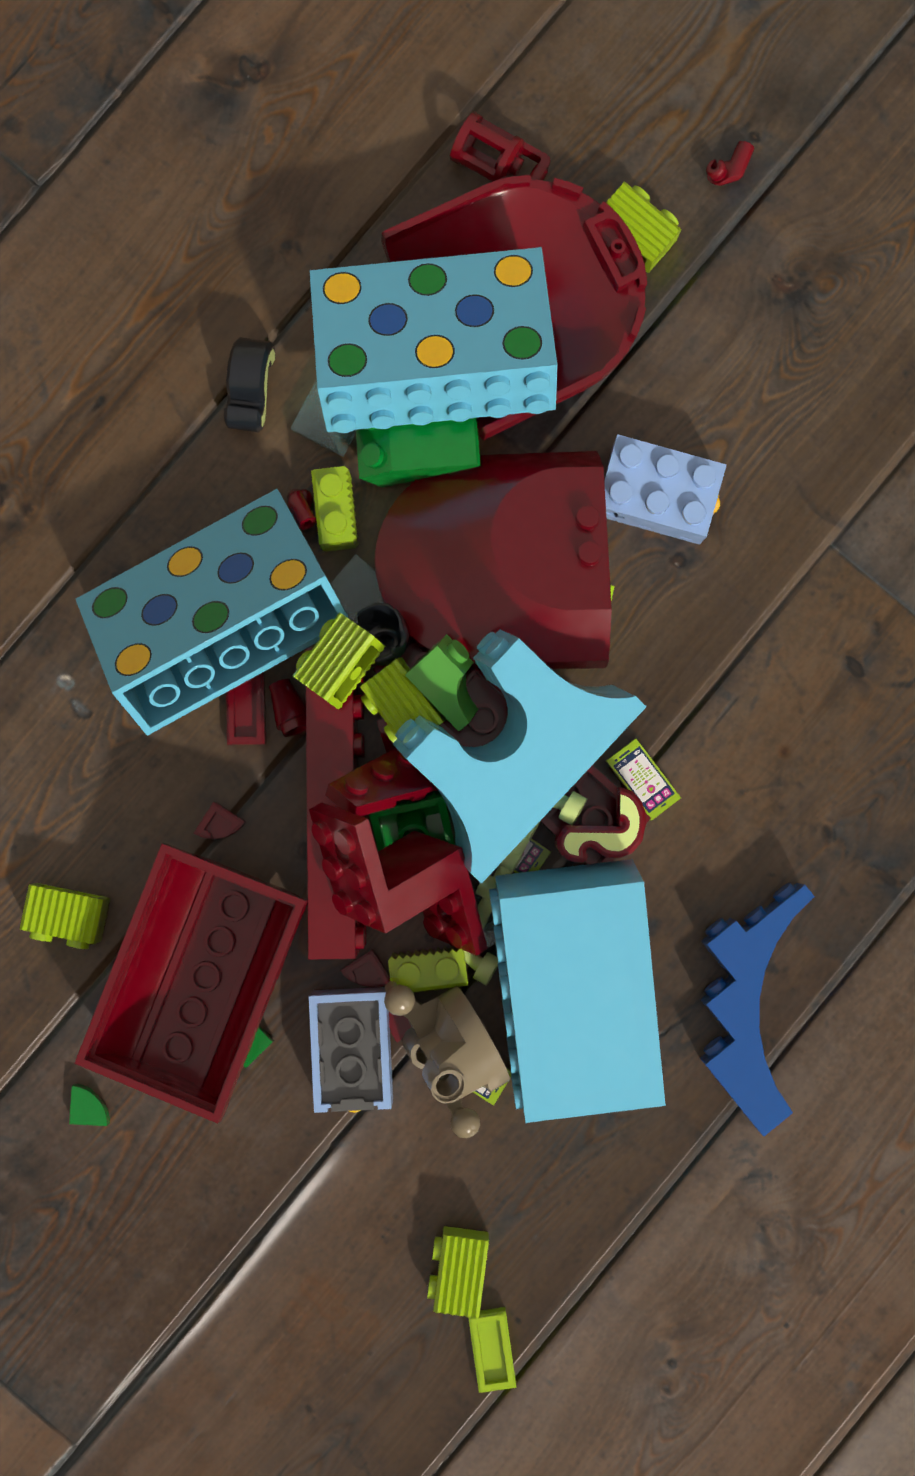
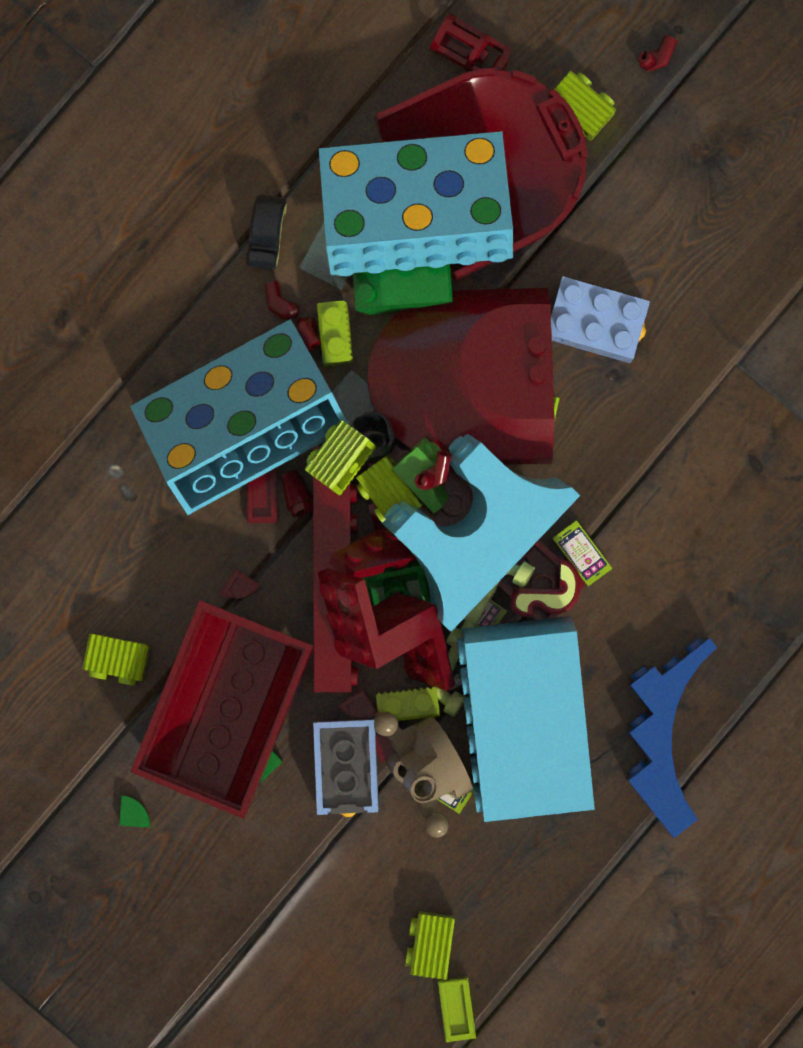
camera: 10 degrees right, 0 degrees up
(266, 475) = (279, 305): none -> dark red arm
(460, 681) = (436, 474): none -> dark red arm

